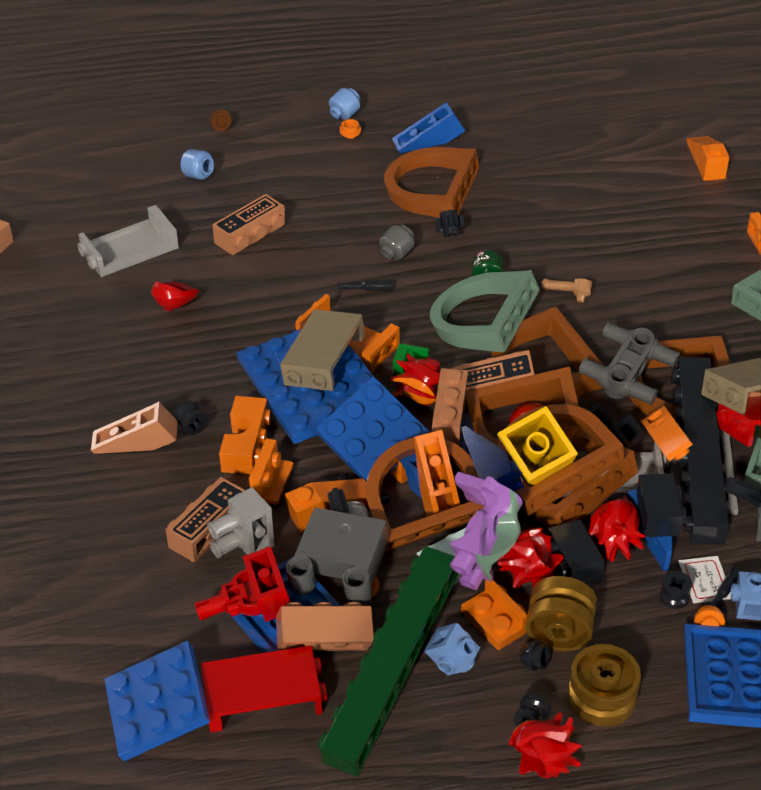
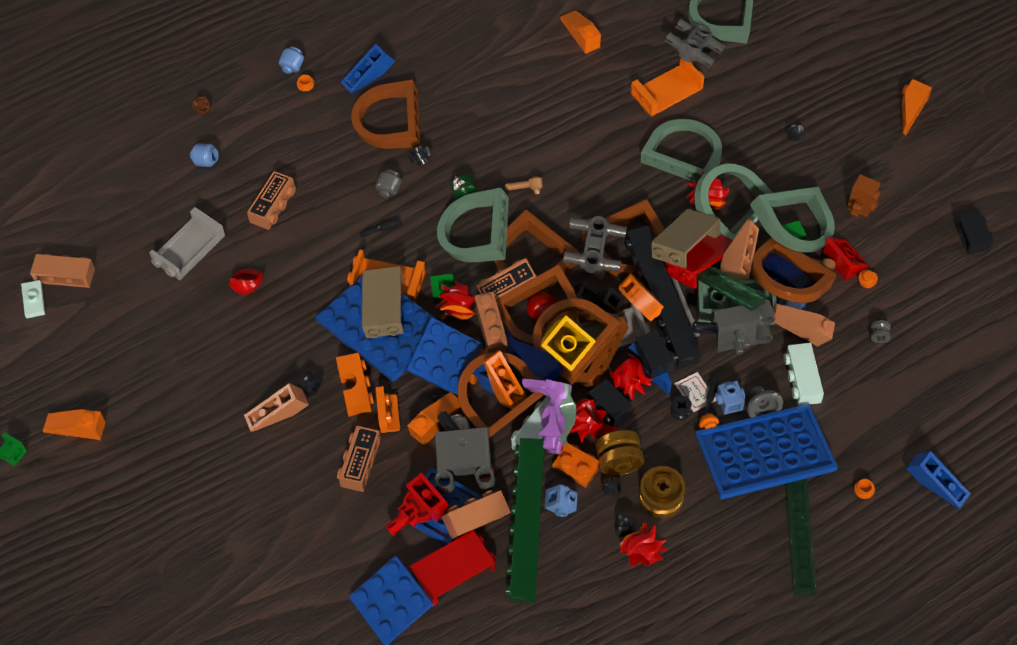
camera: 20 degrees left, 15 degrees up
(248, 523) = (392, 457): light grey brick -> none

